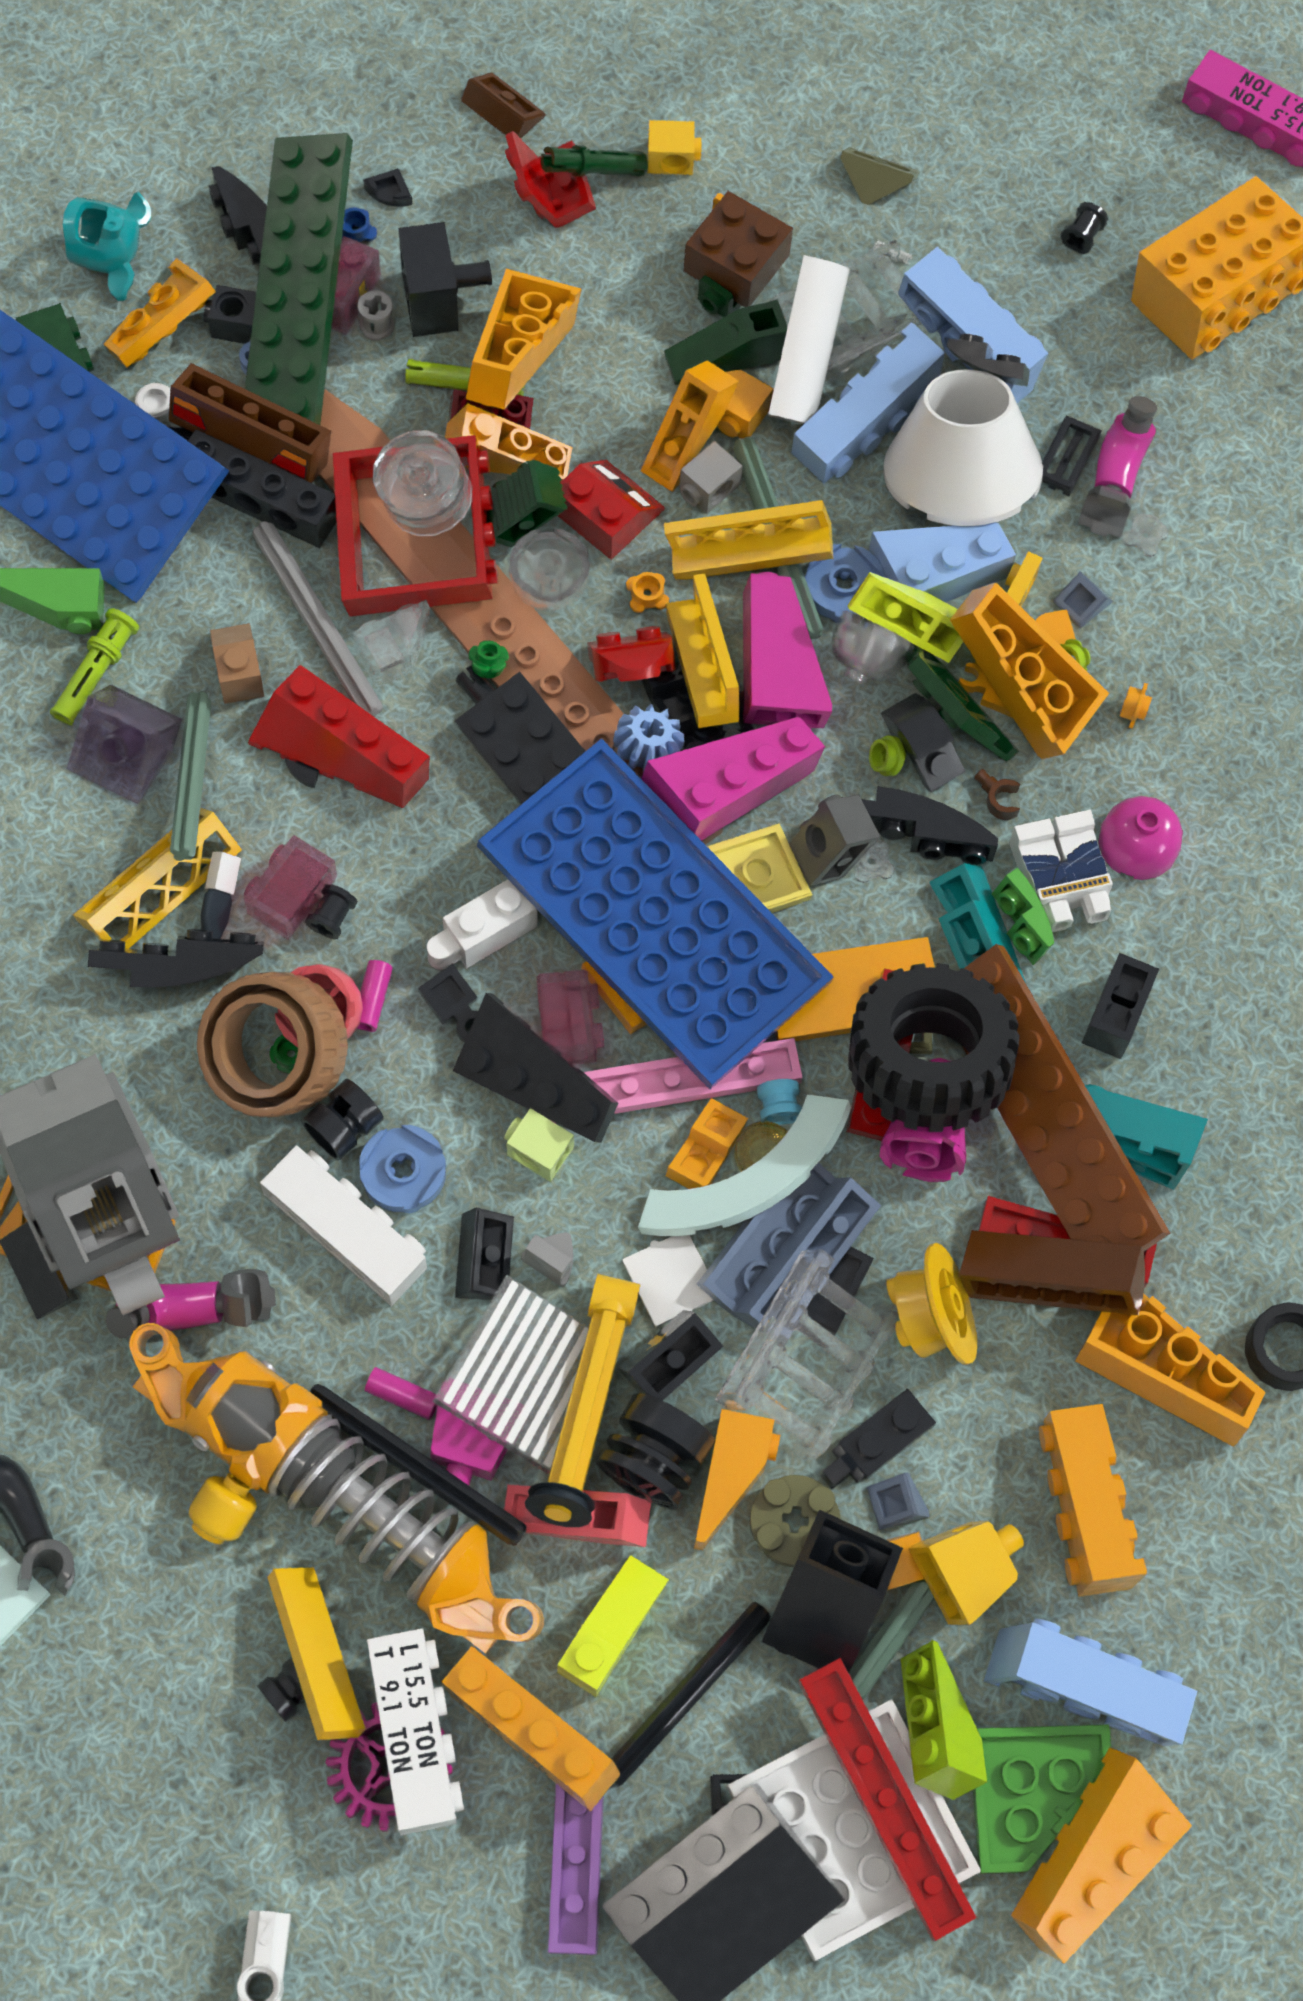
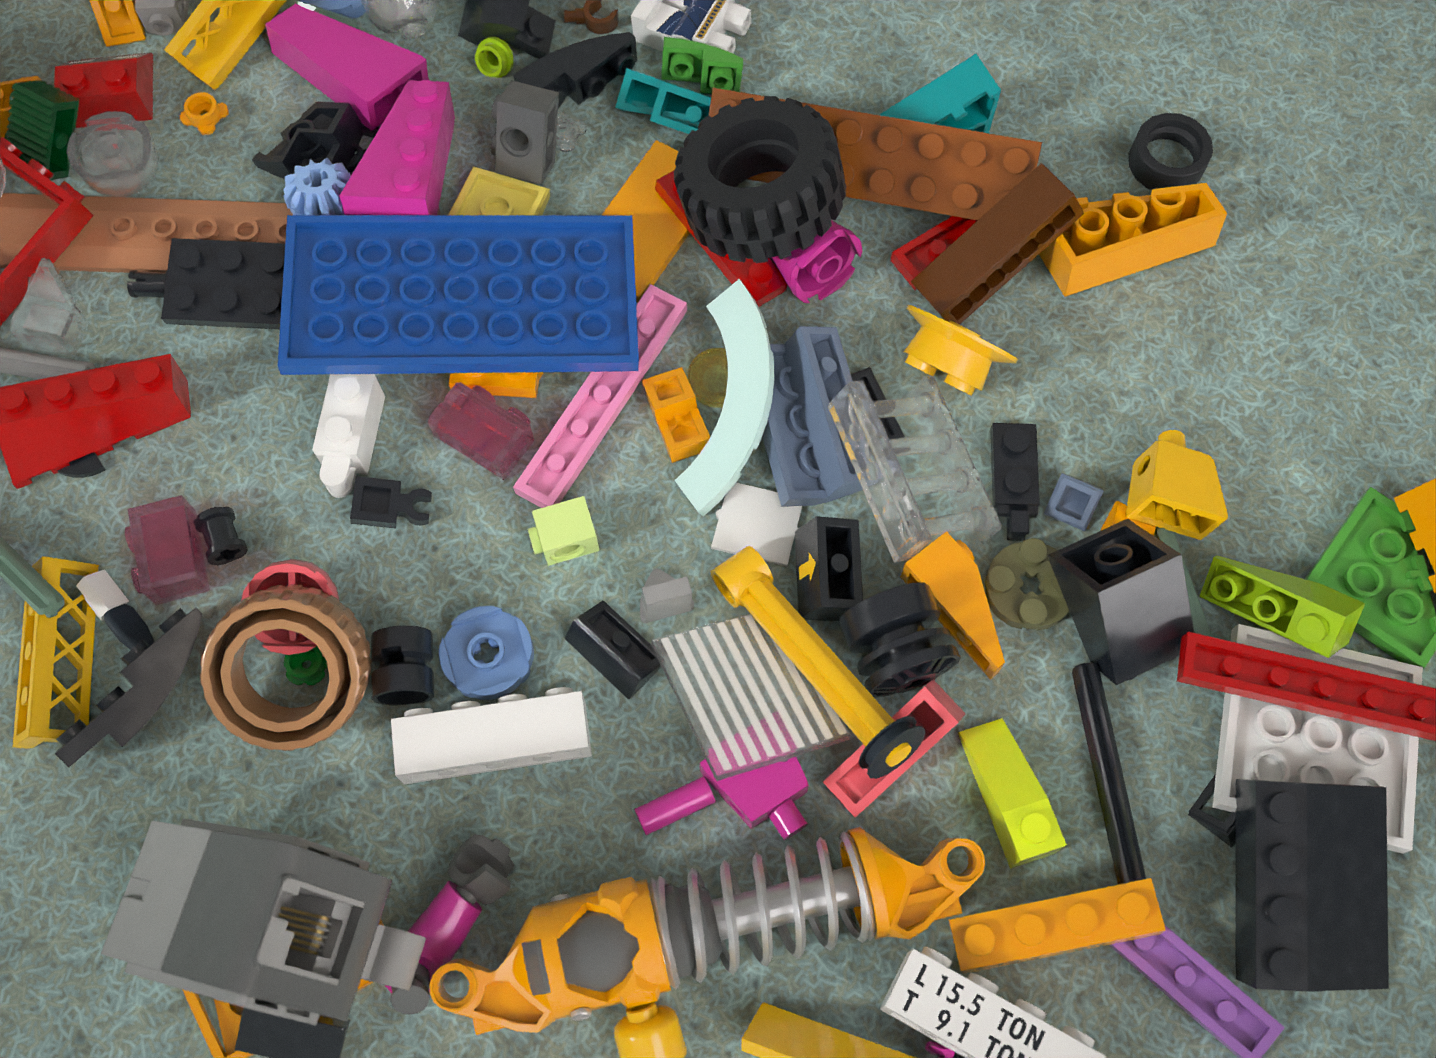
camera: 45 degrees left, 0 degrees up
(373, 993) = (313, 549): dark pink hinge -> none
(421, 1468) = (757, 839): black axle -> none
(488, 659) = (137, 253): green plate -> none
(526, 1069) = (493, 489): black wing -> none
(632, 656) = (247, 153): red slope -> none
(704, 657) = (296, 103): yellow fence -> none
(779, 1101) = (690, 333): medium azure wheel -> none
(1090, 1501) = (1192, 364): light orange wedge -> none
(1092, 1681) = (1327, 473): light blue wedge -> none
(1120, 1006) = (827, 57): black brick -> none

